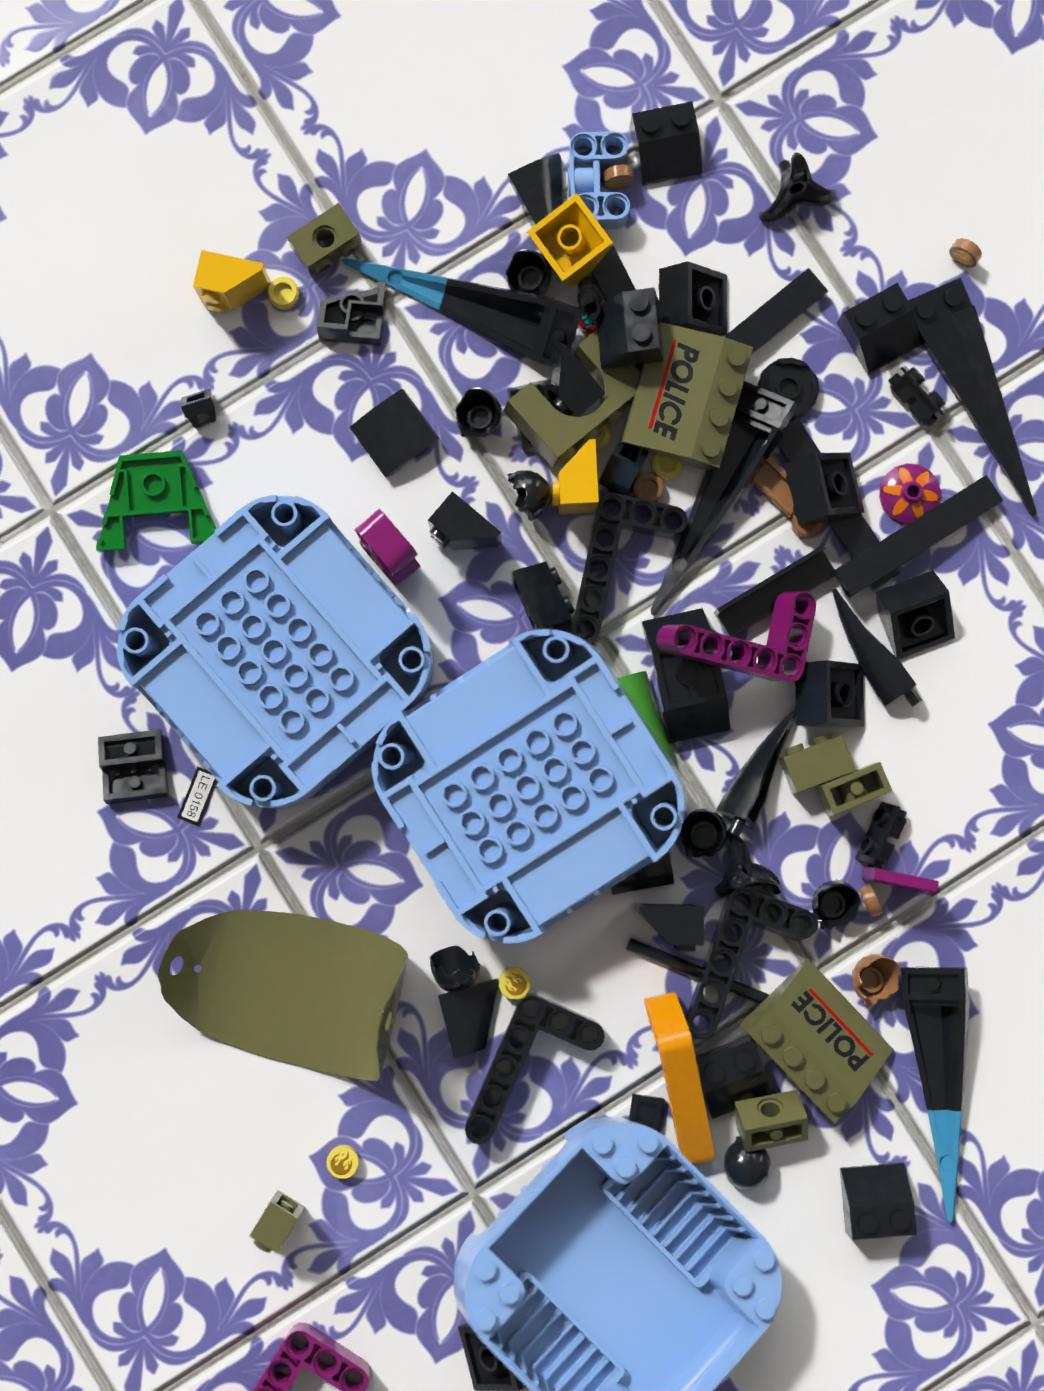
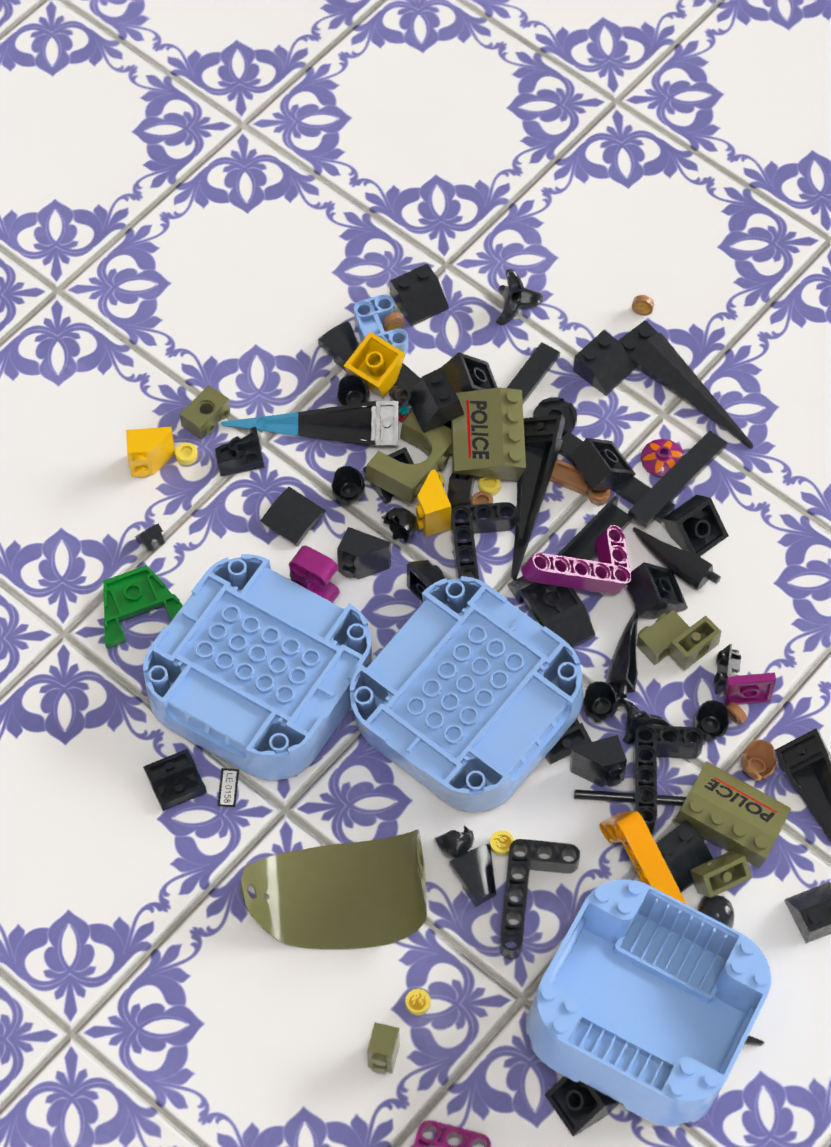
camera: 10 degrees left, 25 degrees down
(572, 383) = (405, 443): black slope -> none
(911, 385) = (652, 400): black hinge -> none

